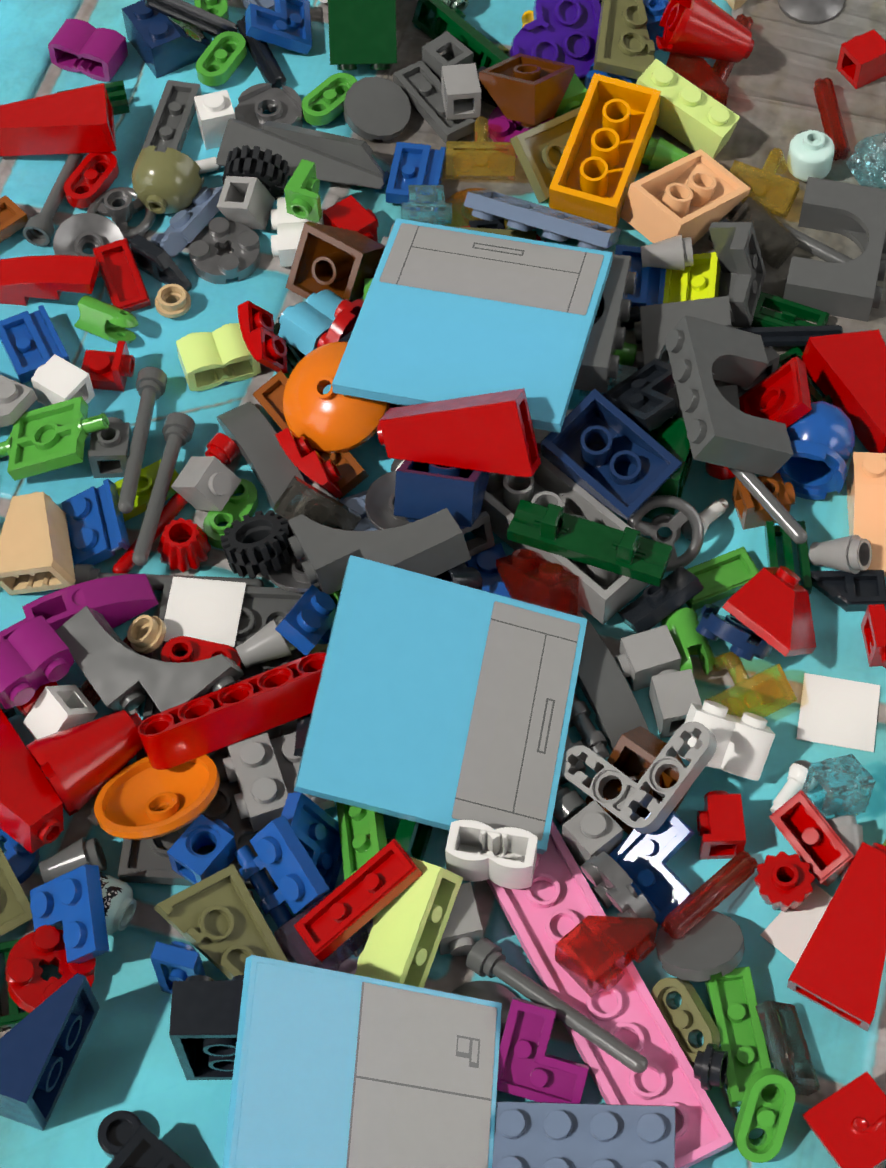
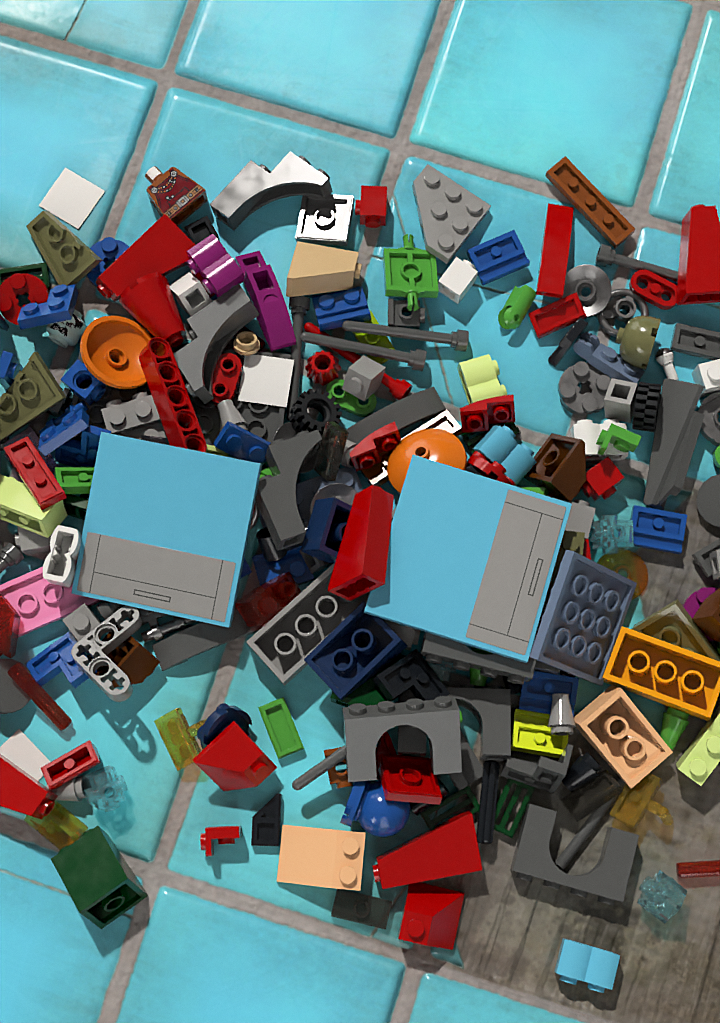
camera: 90 degrees right, 20 degrees up
(72, 857) = (93, 306): dark grey cone -> none
(109, 369) = (476, 310): red bracket -> none
(172, 301) = (539, 346): tan plate -> none
(480, 158) = (670, 578): clear yellow plate -> none
(590, 542) = (289, 633): dark green hinge -> none
(614, 887) = (39, 636): flat silver plate -> none
(647, 656) = (214, 671): light grey brick -> none
(661, 601) = (257, 684): black plate -> none
(671, 698) = (180, 687): light grey brick -> none
(674, 522) = (317, 692): flat silver piece -> none
(687, 640) = (232, 696): bright green piece -> none
(708, 516) = (324, 716): white piece -> none
(721, 826) = (88, 709): red brick -> none
(741, 741) = (141, 716): white brick -> none
(784, 881) = (47, 753): red piece -> none
(796, 779) = (123, 766): white piece -> none
(803, 556) = (271, 778): dark green tile -> none
(810, 155) = (678, 842): light aqua head -> none
(838, 712) = (173, 800): white sticker -> none
(843, 554) = (288, 816): light grey cone -> none

